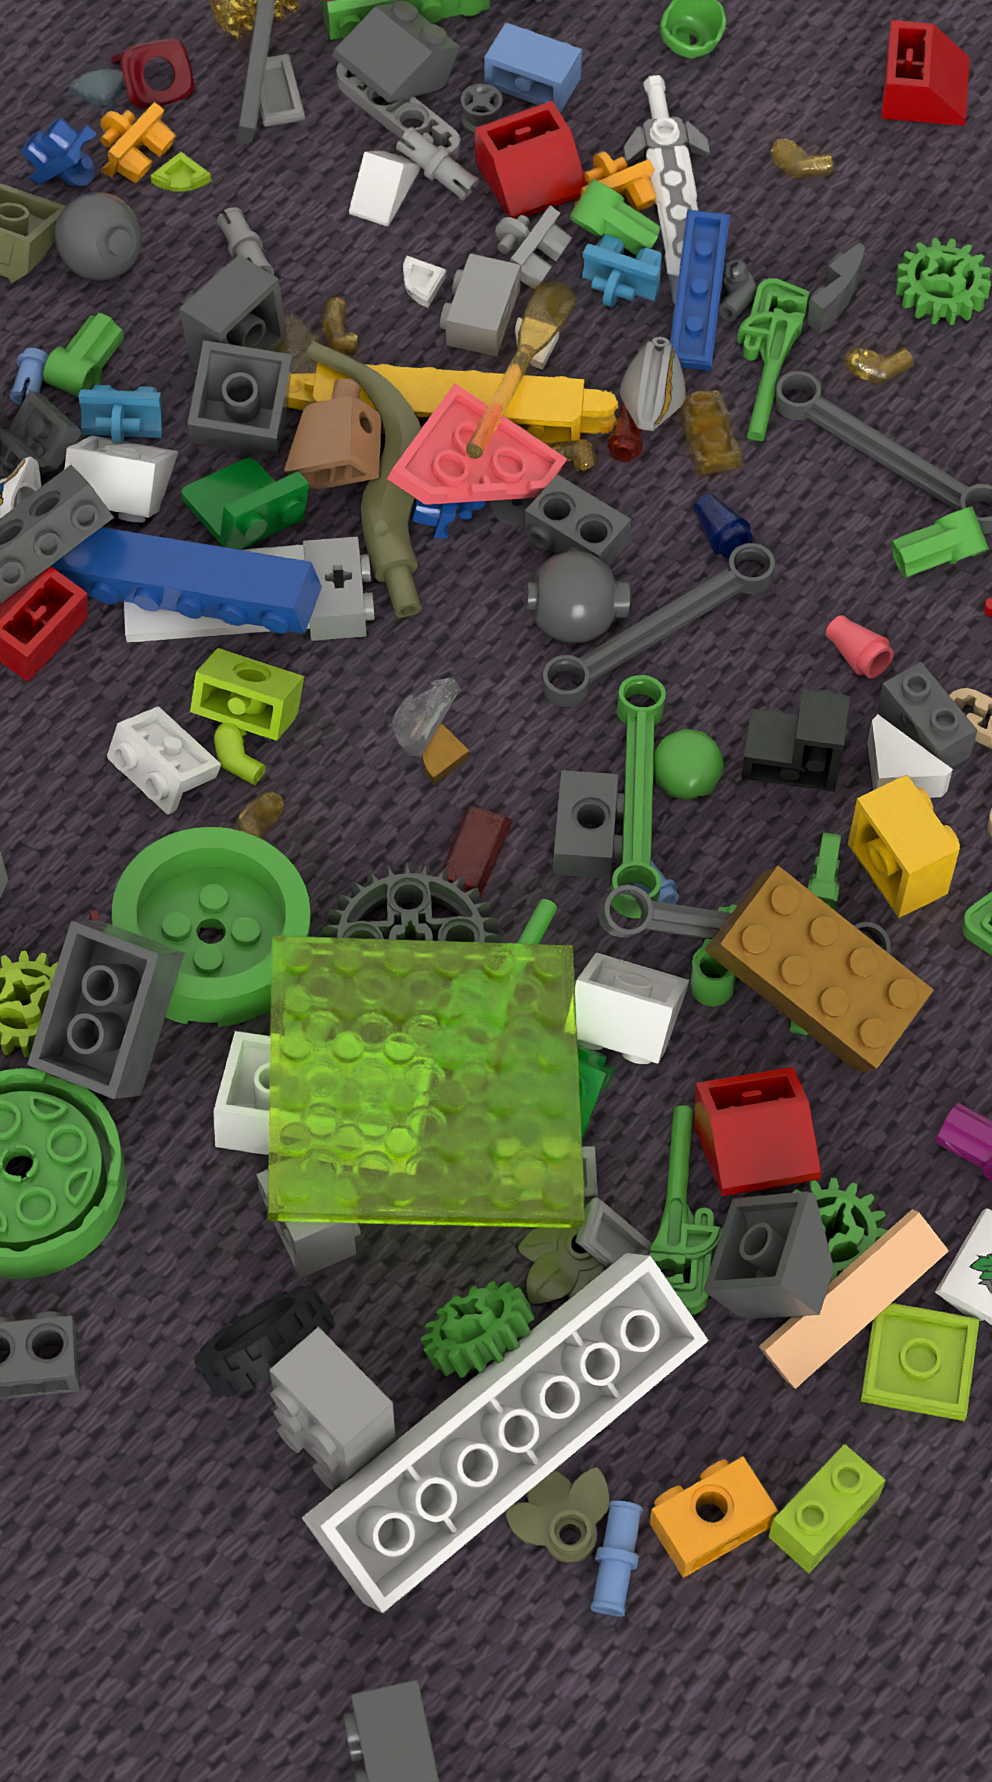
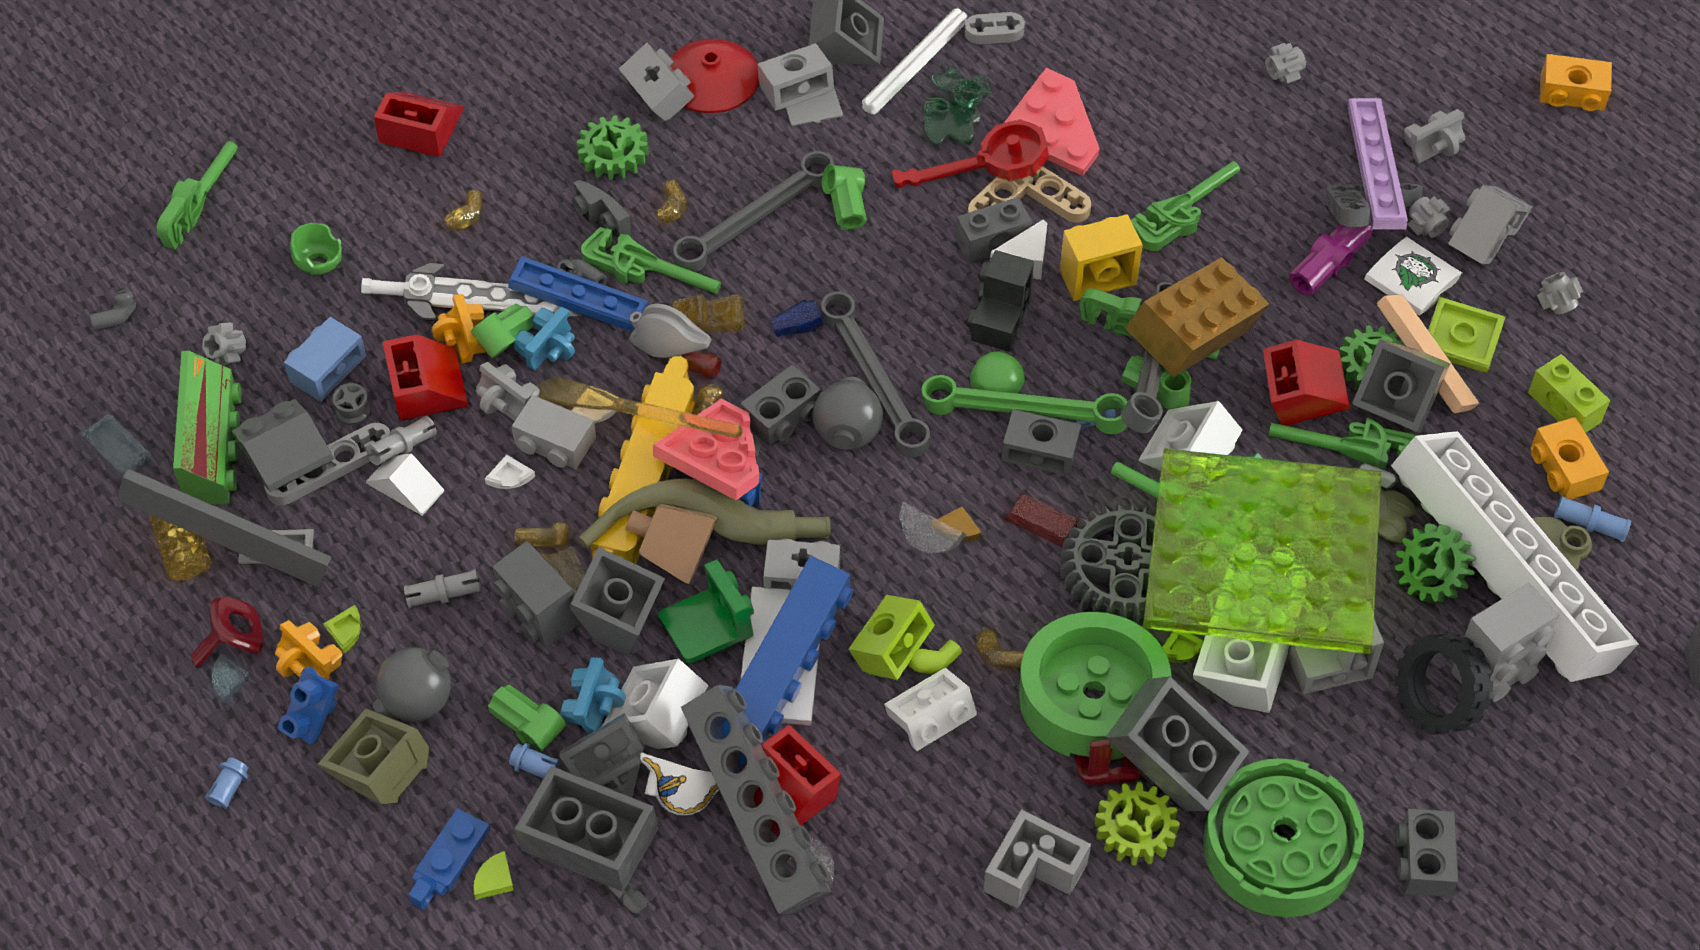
camera: 80 degrees left, 5 degrees down
(862, 648) = (921, 258): coral cone -> none

